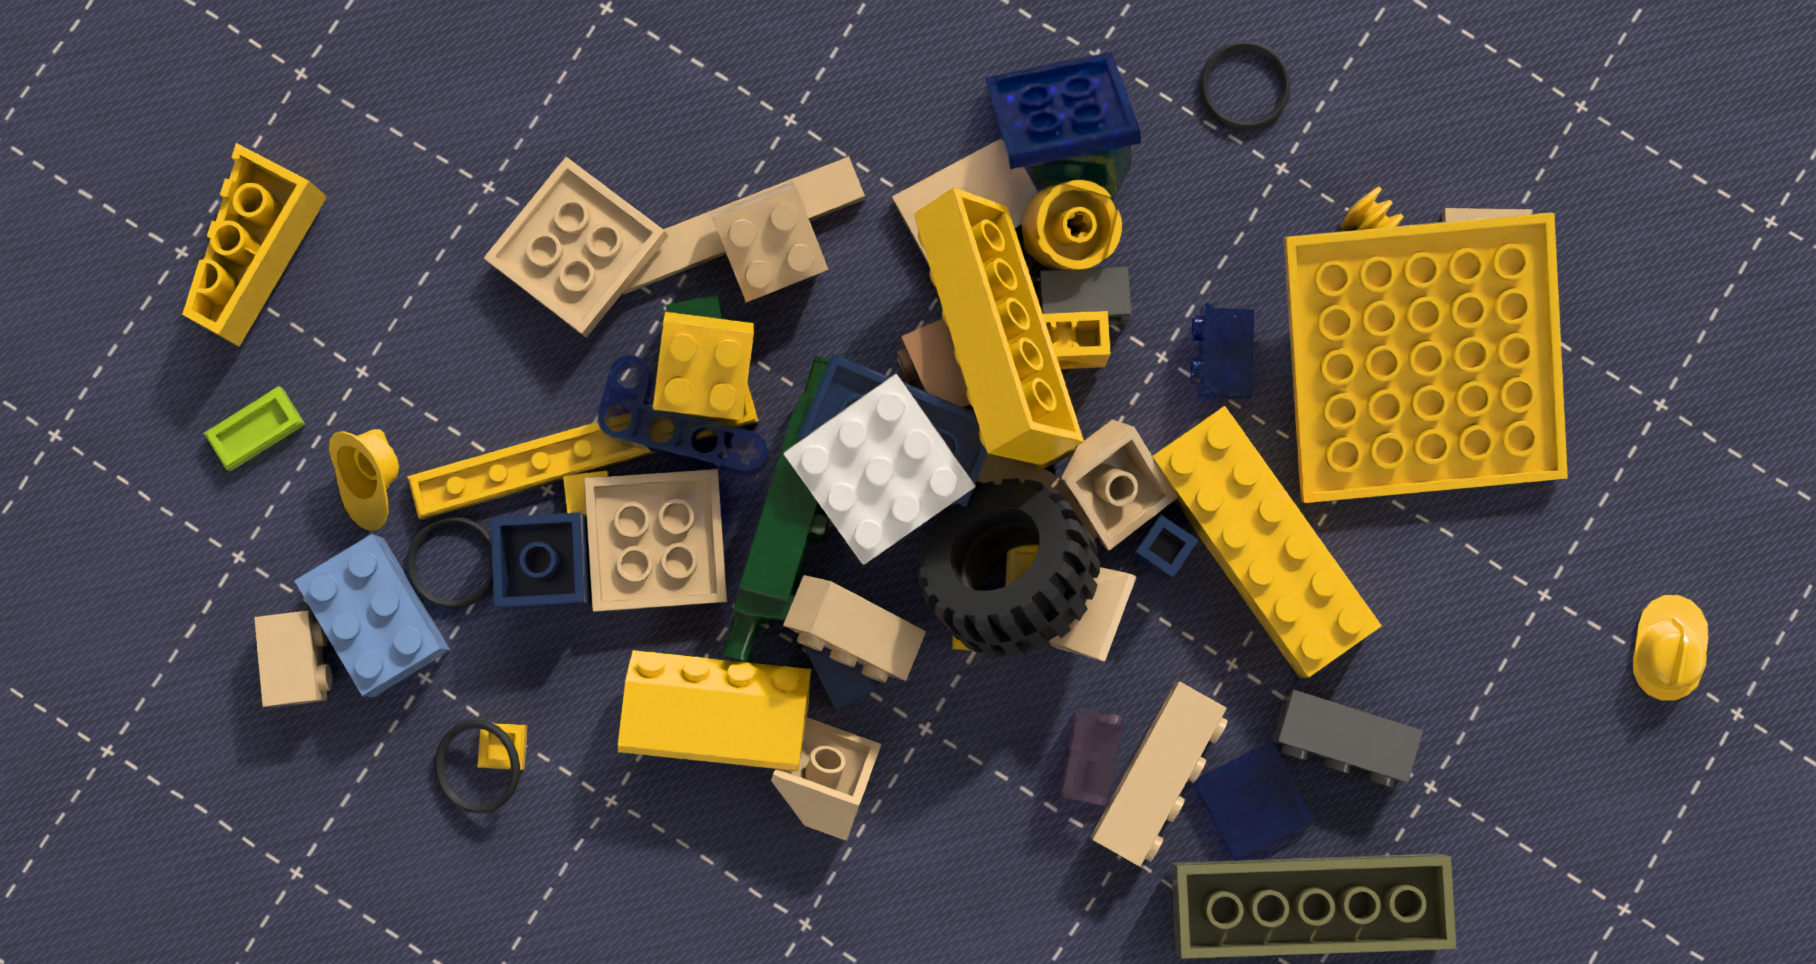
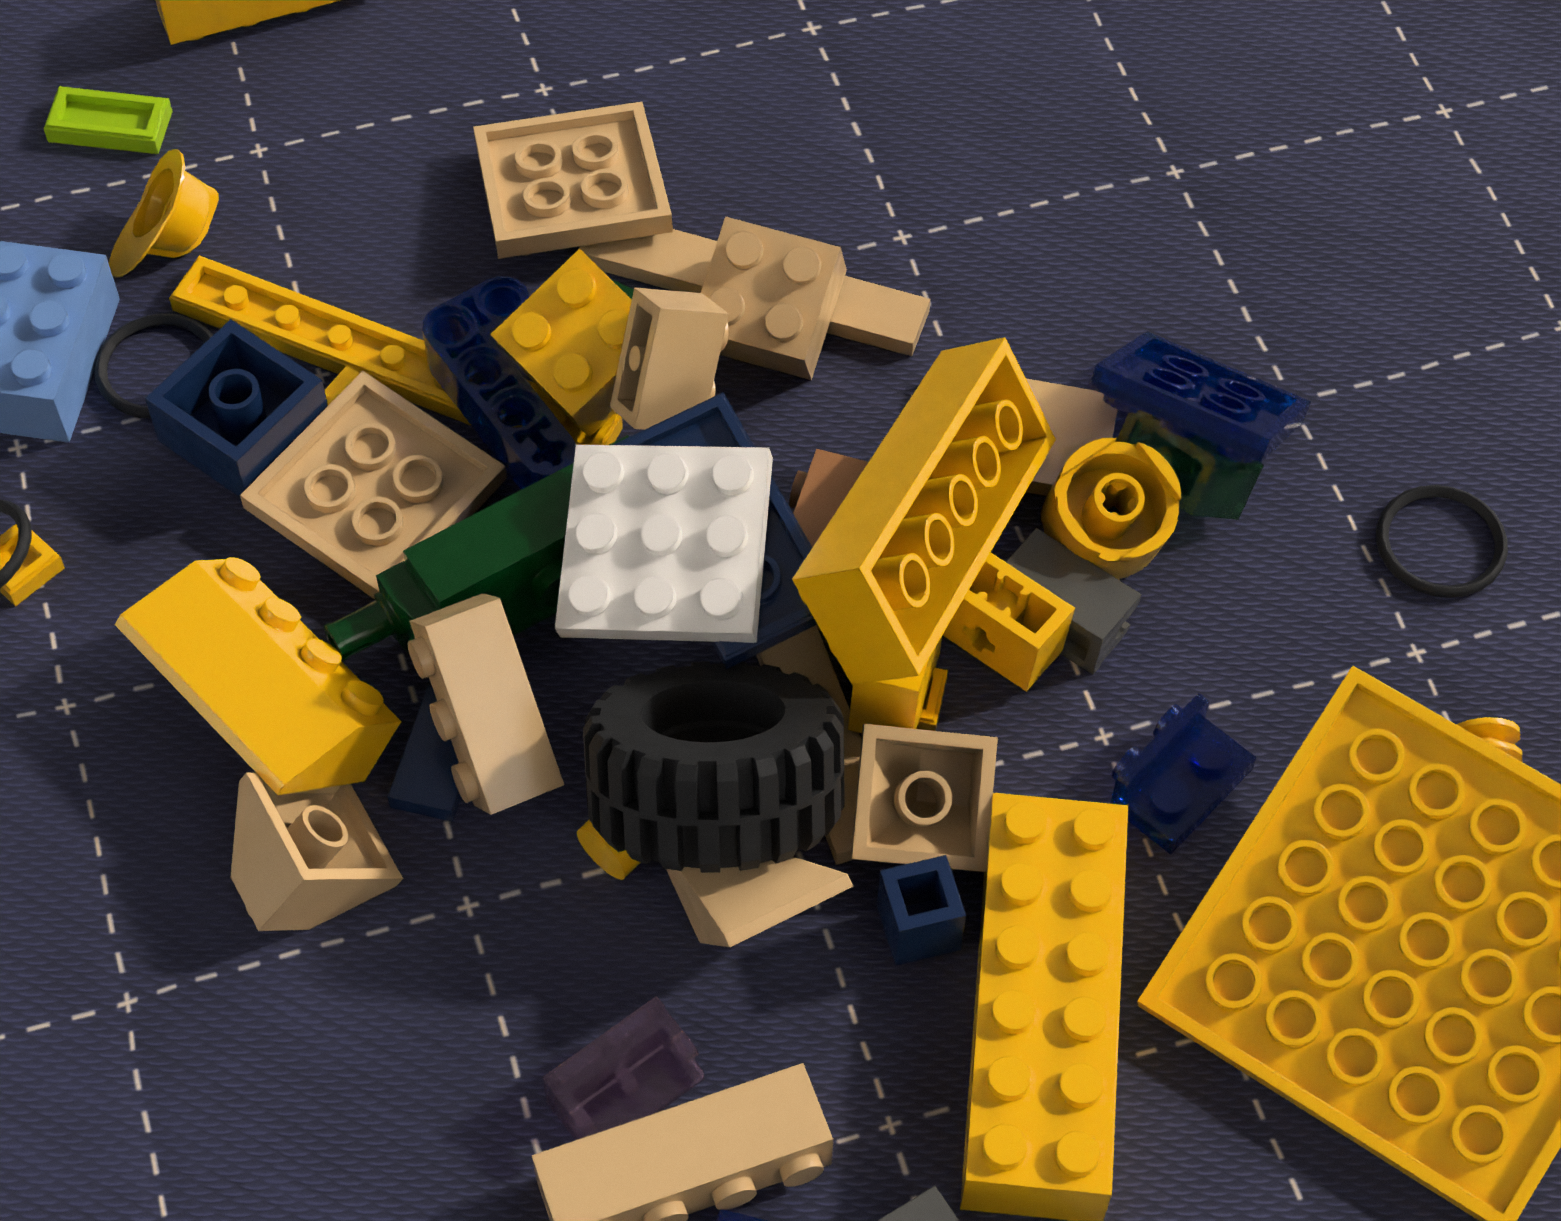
camera: 40 degrees right, 25 degrees down
(775, 349) = (667, 355): none -> tan brick

